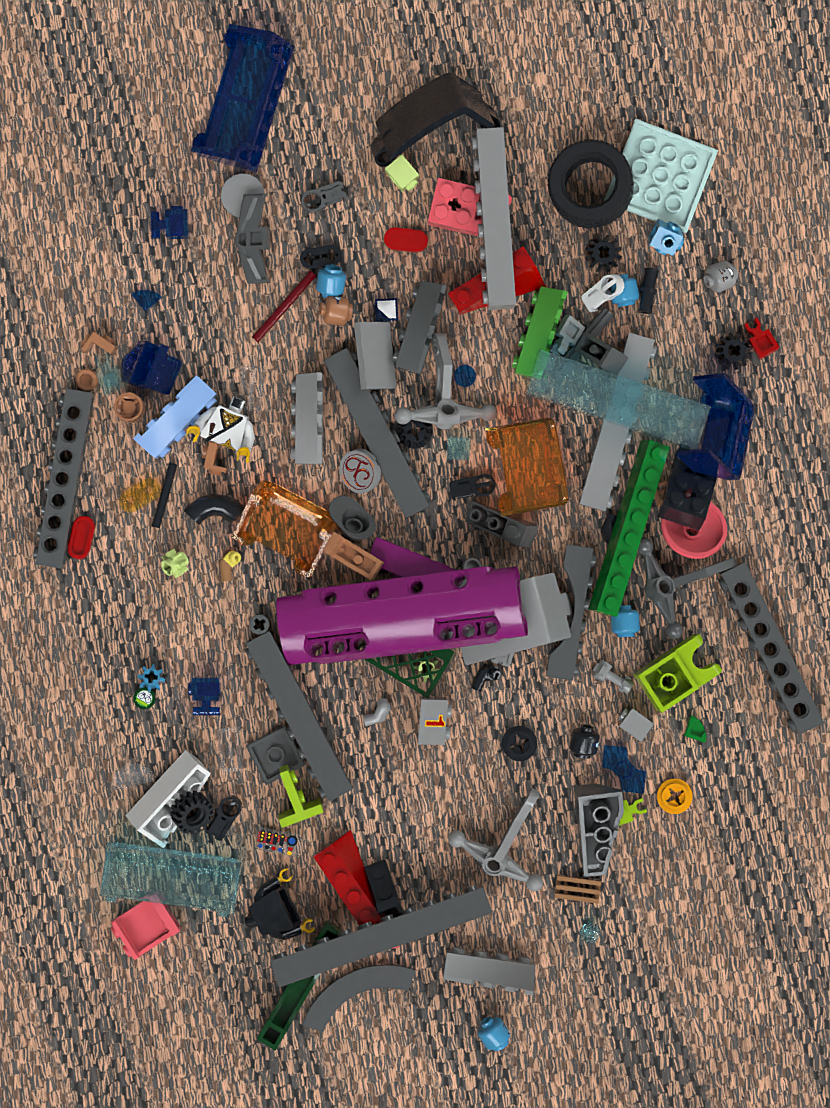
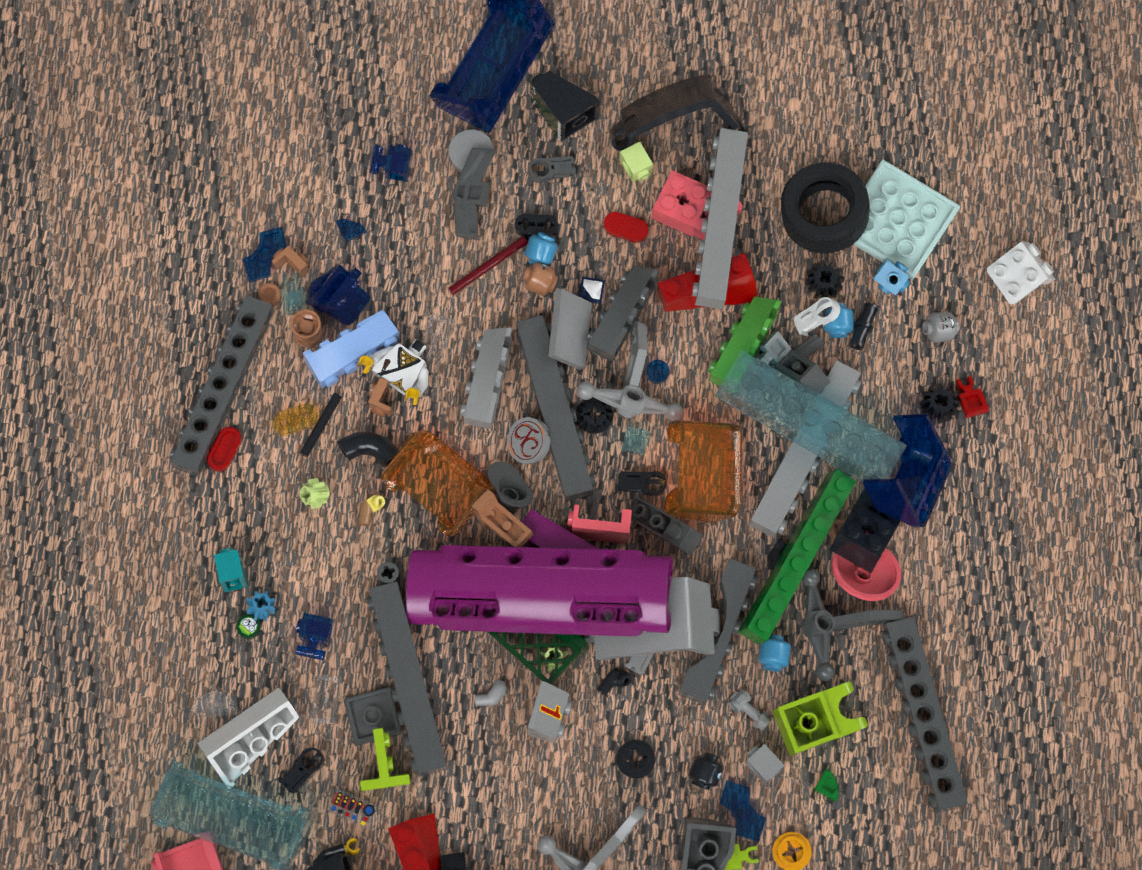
camera: 10 degrees right, 15 degrees down
(69, 351) = (260, 262): none -> clear blue tile
(116, 653) = (230, 570): none -> teal brick
(196, 820) = (275, 764): black tyre -> none
(320, 132) = (563, 104): none -> black slope
(464, 541) = (600, 530): none -> coral panel
(786, 205) = (1020, 272): none -> white bracket

